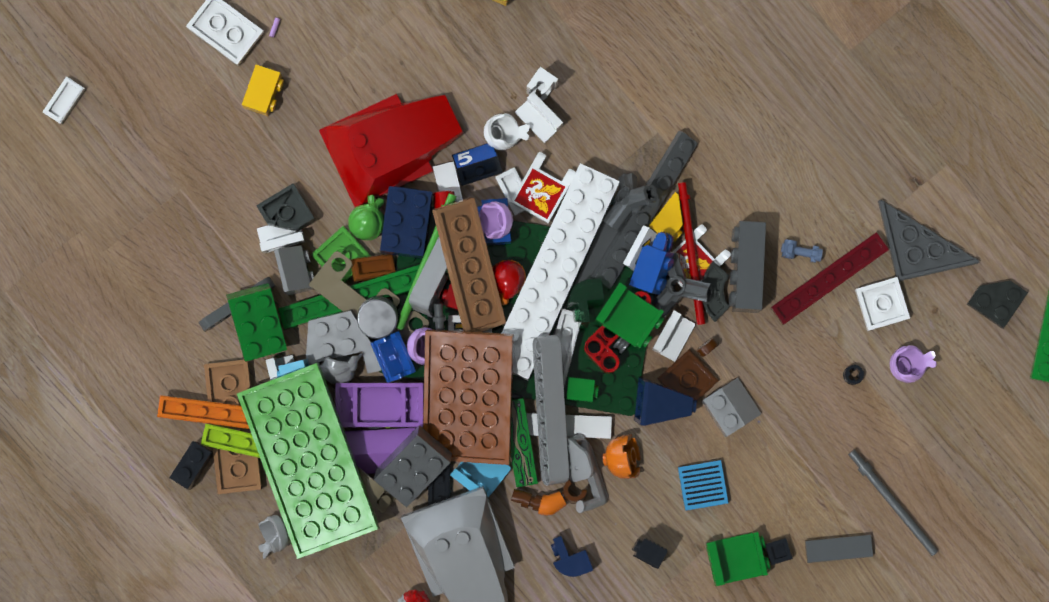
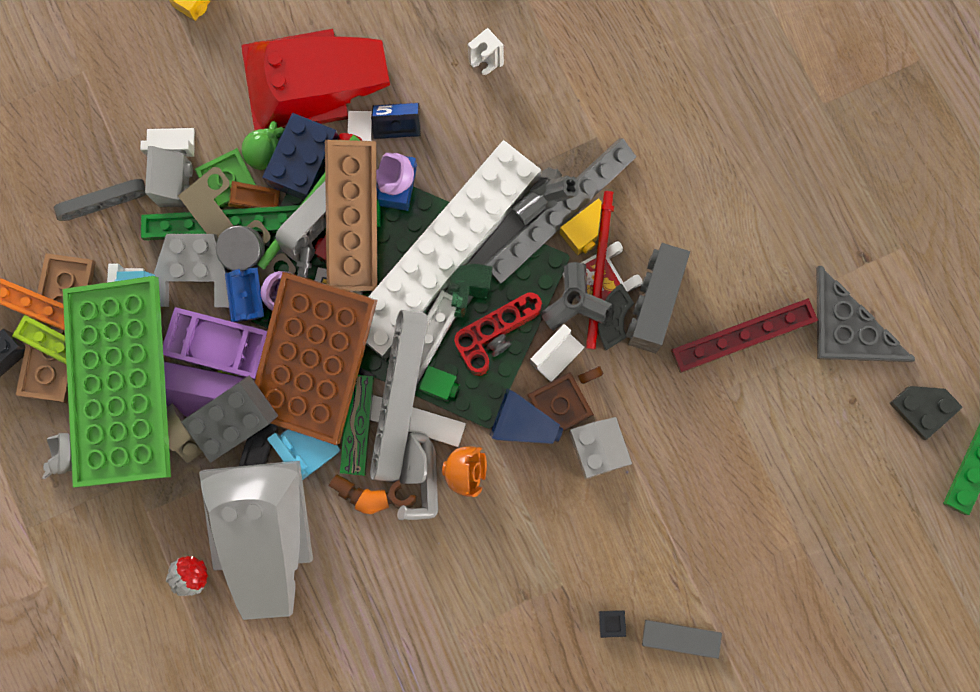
camera: 20 degrees right, 5 degrees down
(256, 322) = (110, 221): green brick -> none
(286, 210) = (182, 116): pearl dark grey plate -> none
(339, 370) = (184, 295): light grey hat -> none
(503, 131) = (433, 92): white hat -> none
(509, 184) = (428, 159): white tile -> none
(509, 279) = (392, 245): red piece -> none
(539, 117) = (475, 89): white panel -> none
(541, 192) = (453, 162): flag -> none
(571, 565) = (372, 575): dark blue brick -> none
(630, 317) = (512, 315): green panel -> none
(645, 237) = (545, 250): white tile -> none
(649, 552) = (465, 585): black brick -> none
(654, 264) = (555, 268): blue hinge -> none
(702, 485) = (546, 526): dark azure tile -> none
(737, 558) = (564, 619): green panel -> none
(790, 249) = (709, 292): sand blue bar -> none
(860, 375) = (738, 443): black bush -> none
(866, 469) = (734, 556): dark grey bar -> none
(882, 304) = (796, 377): white plate -> none
(910, 364) = (813, 452): lavender hat -> none

